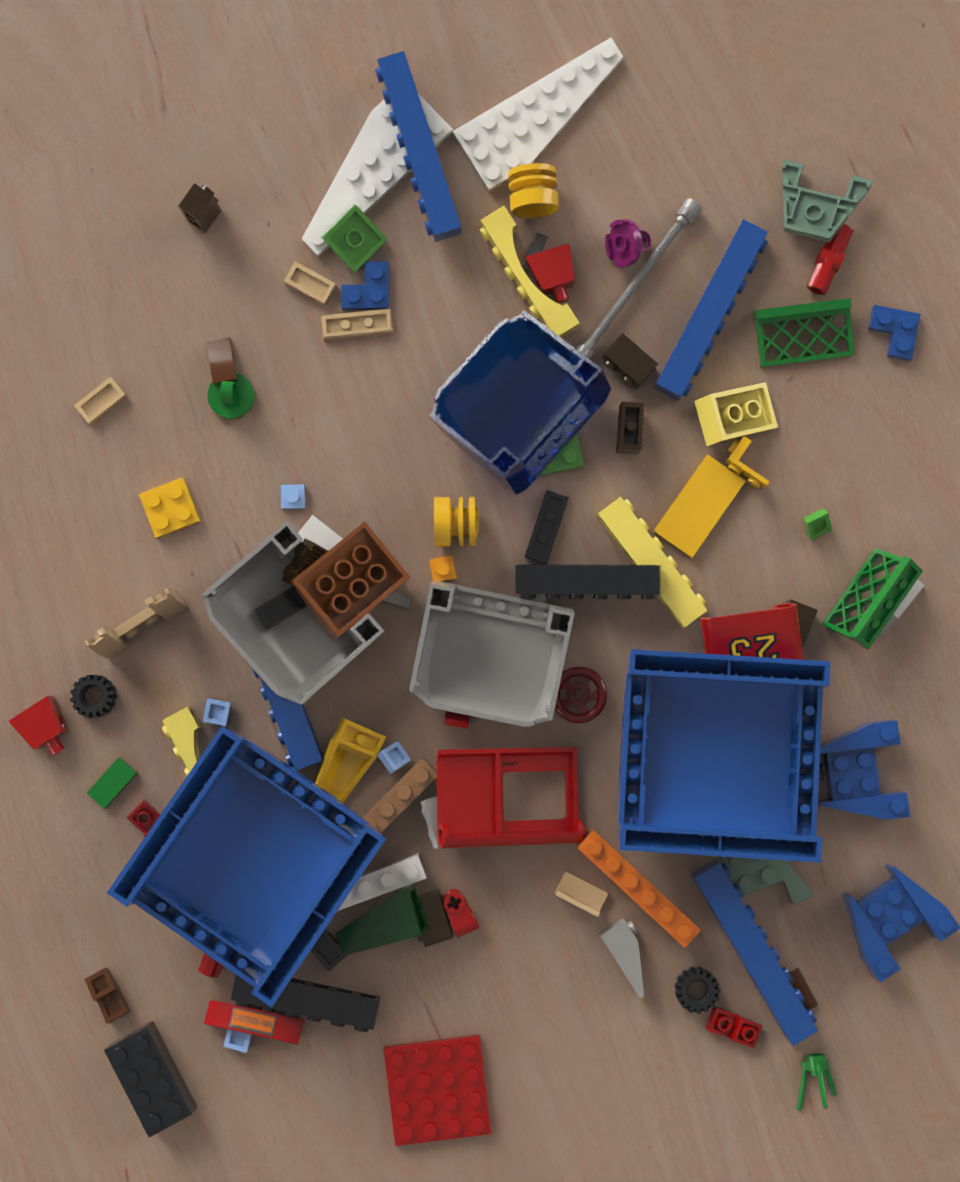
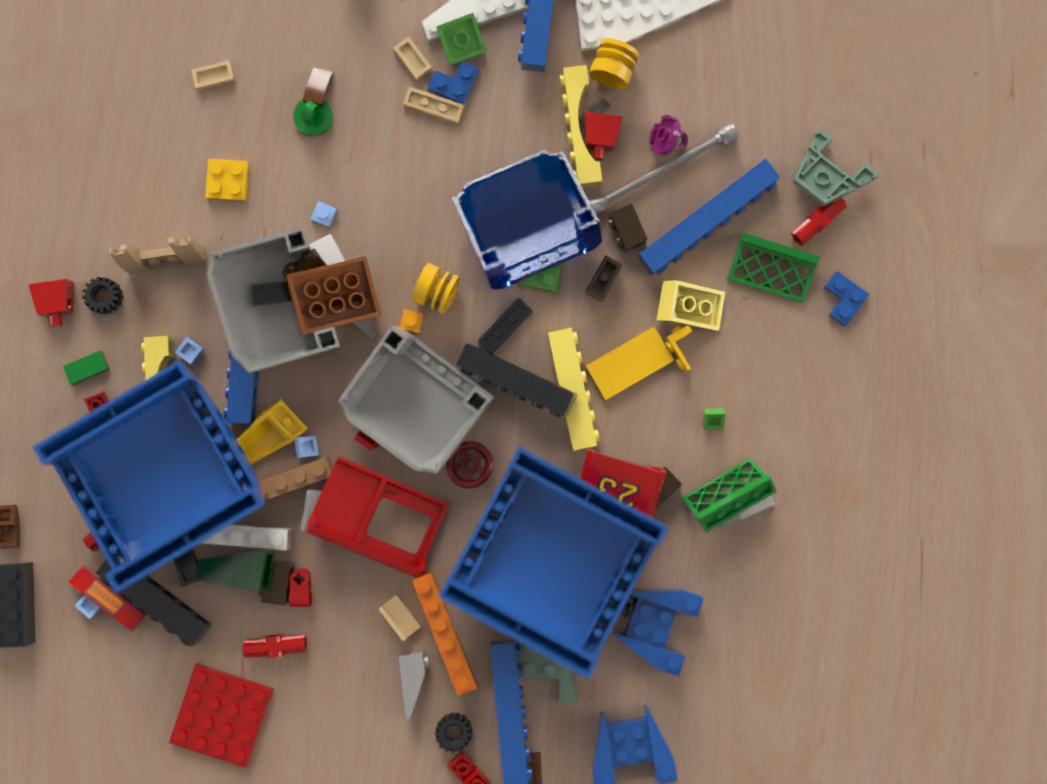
camera: 25 degrees right, 0 degrees up
(461, 987) = (275, 646): none -> red piece

